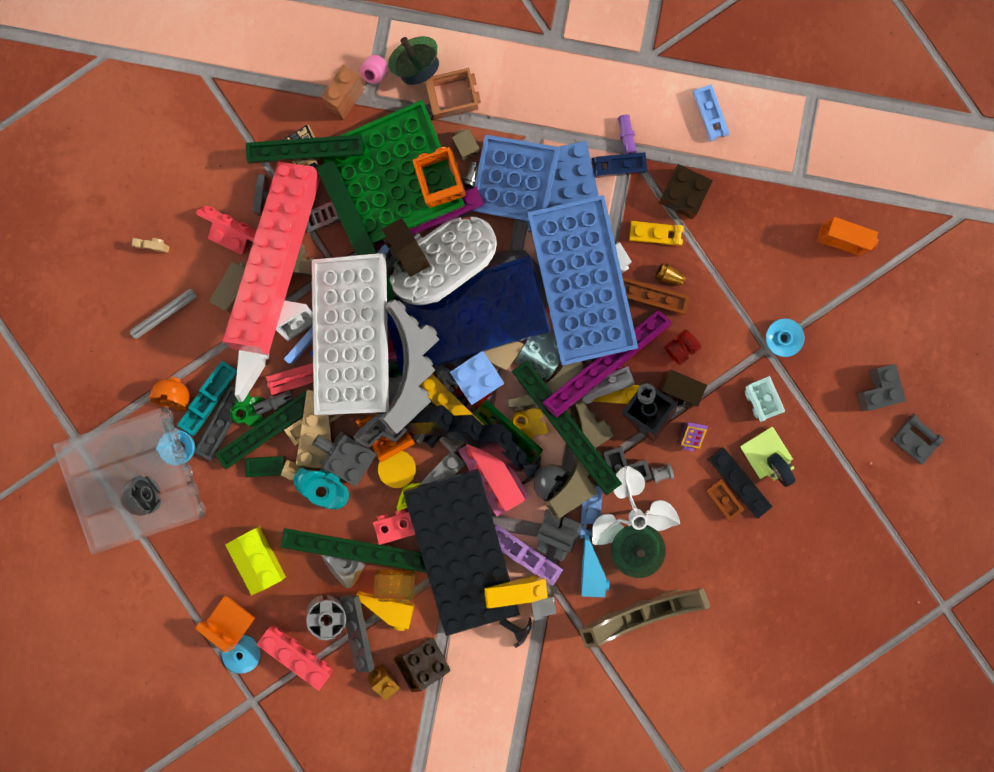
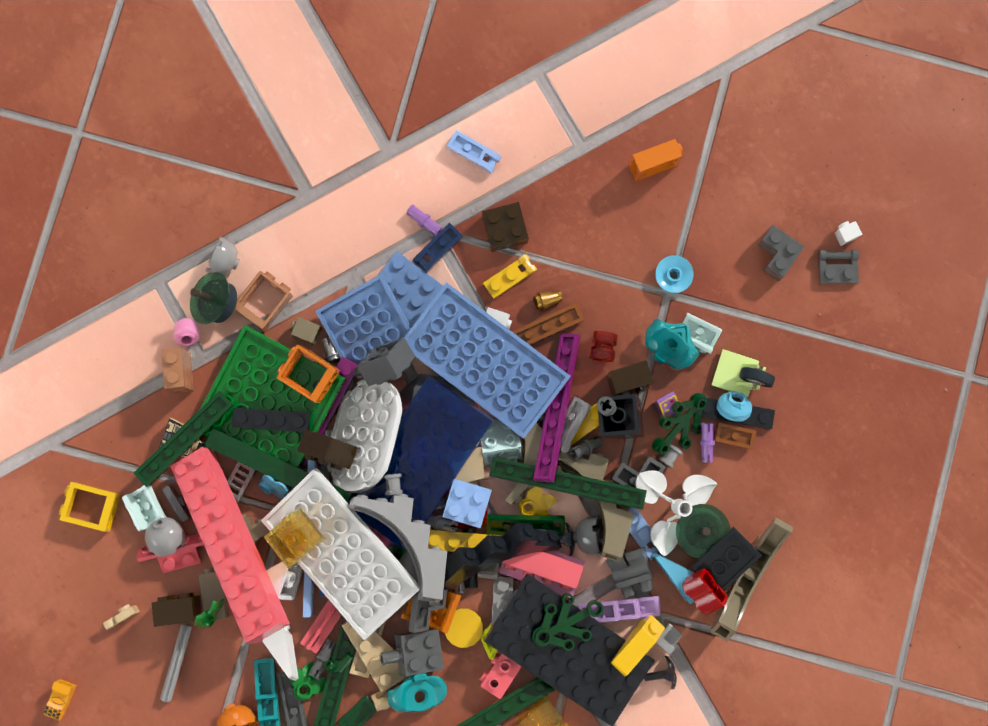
camera: 45 degrees left, 5 degrees down
(56, 268) = (59, 700): none -> light orange leg
(193, 274) = (177, 610): none -> dark brown brick
(204, 158) = (108, 511): none -> yellow window
(212, 299) = (208, 618): none -> green plate
(230, 211) = (164, 536): none -> light grey cylinder
(233, 177) = (143, 507): none -> light aqua bracket
(279, 417) = (338, 666): none -> dark green arm
(324, 293) = (294, 538): none -> clear yellow brick
(340, 240) = (269, 485): none -> medium azure plate
(382, 189) = (271, 419): none -> black plate
(433, 315) = (393, 484): none -> light grey bush
(449, 34) = (223, 257): none -> light grey cylinder
(473, 530) = (565, 624): none -> dark green plant
(505, 218) = (385, 362): none -> dark grey brick
(600, 596) = (704, 591): none -> red brick
(603, 412) = (585, 447): none -> dark grey pin
(637, 587) = (728, 558): none -> black tile
(699, 486) = (707, 442): none -> medium lavender pin
(714, 451) = (695, 406): none -> dark green plant
(736, 389) = (671, 344): none -> teal piece
(740, 478) = (734, 410): none -> medium azure piece
(948, 419) = (847, 232): none -> white plate

